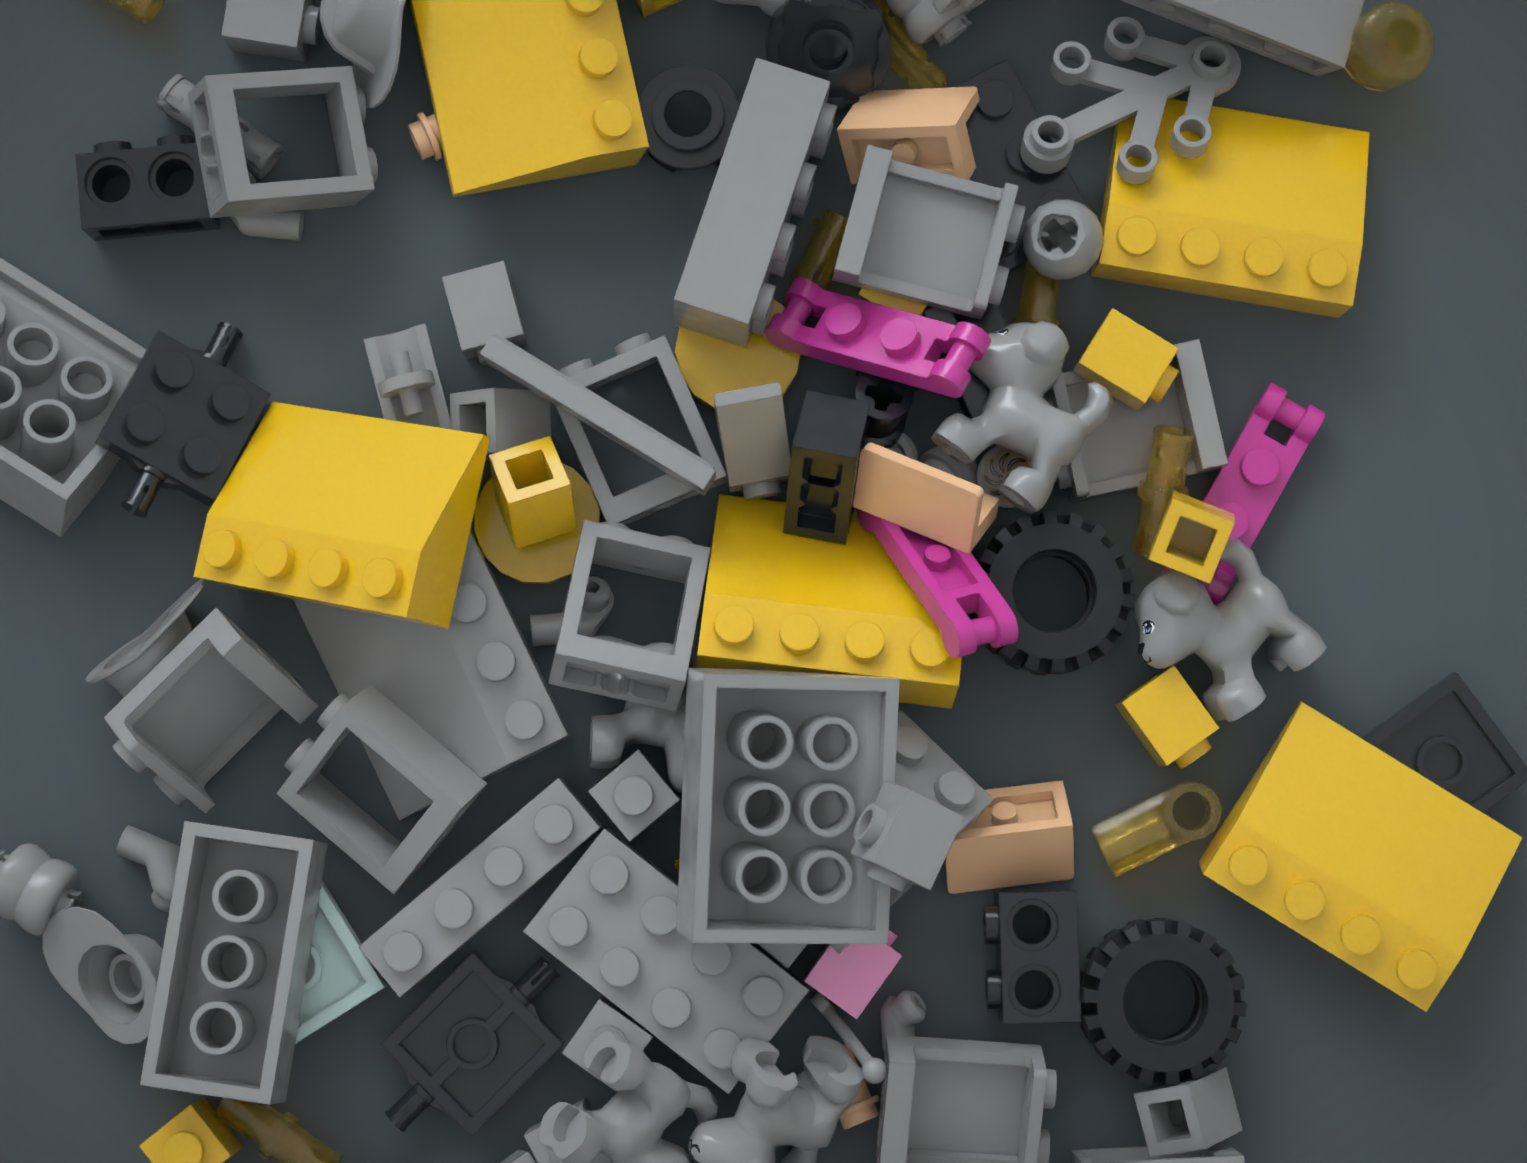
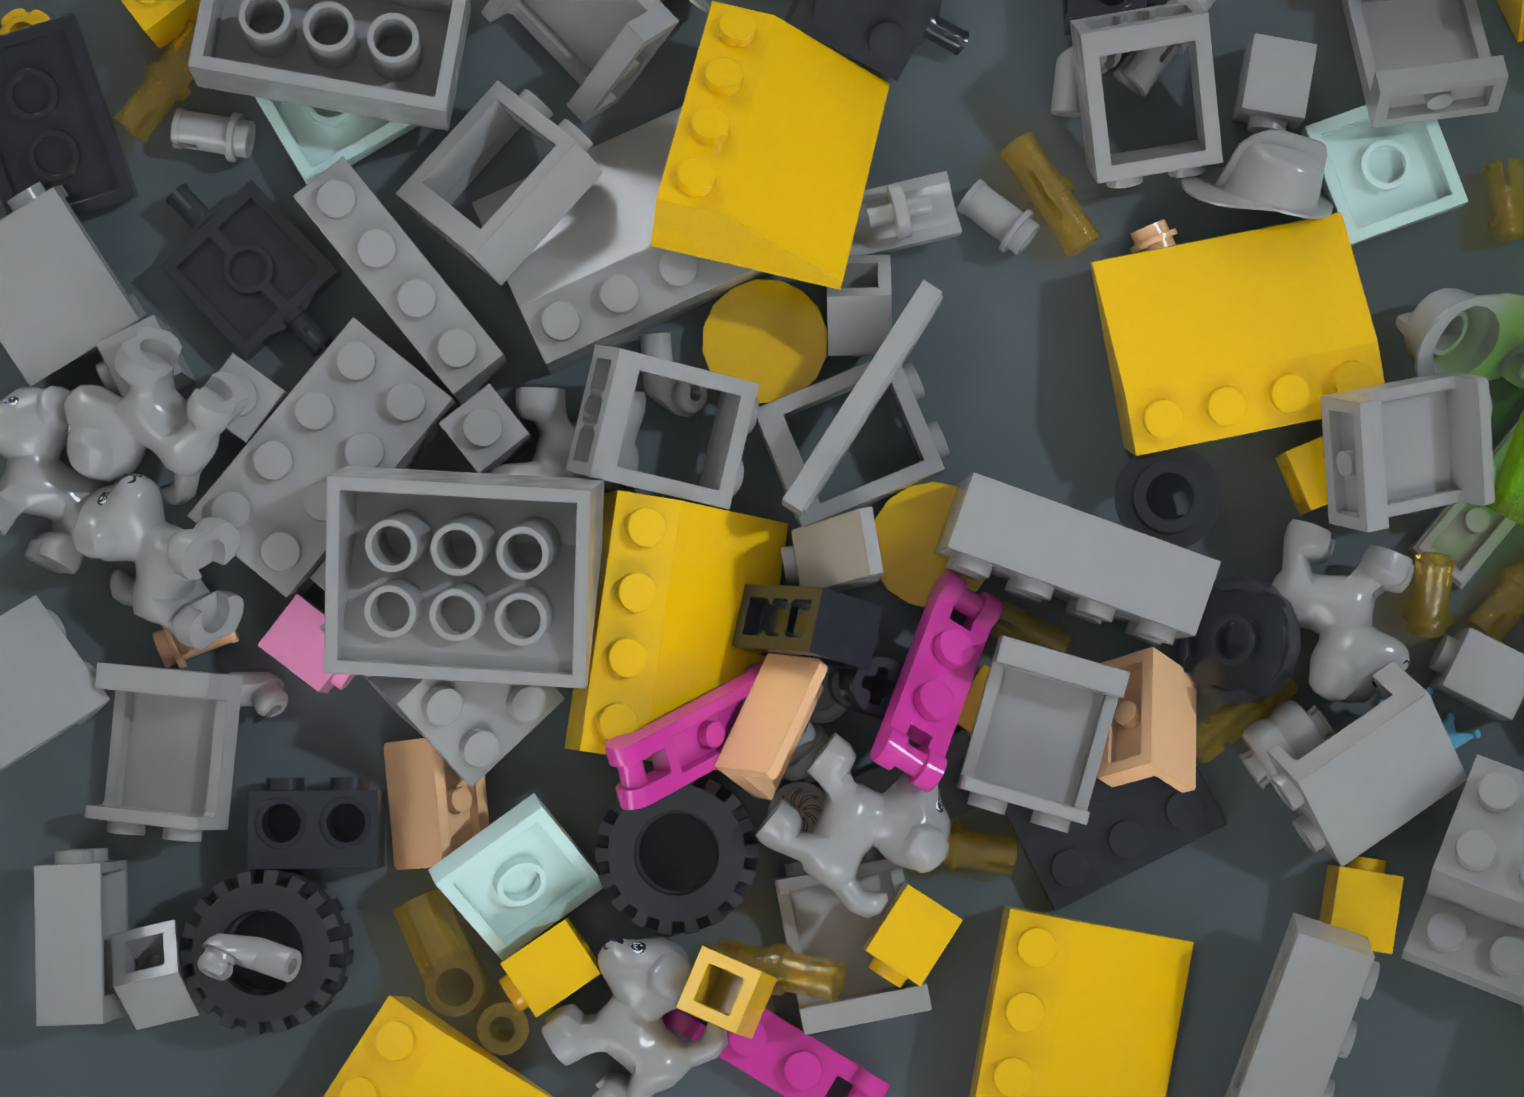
camera: 95 degrees right, 0 degrees up
(332, 1086) = (213, 133): none -> light grey pin
(383, 238) = (1050, 194): none -> clear yellow pin
(408, 289) = (999, 217): none -> light grey pin
(483, 306) = (976, 292): light grey brick -> none
(533, 492) = (787, 333): yellow brick -> none
(873, 1069) = (205, 658): light grey hinge -> none
(904, 837) = (424, 688): light grey brick -> none
(1062, 239) = (1035, 872): light grey piece -> none
(1080, 751) = (517, 877): none -> light aqua plate
(1135, 95) = (1184, 956): light grey plant -> none
(1166, 1012) = (249, 952): none -> light grey arm
(1244, 761) = (492, 1039): none -> clear yellow pin

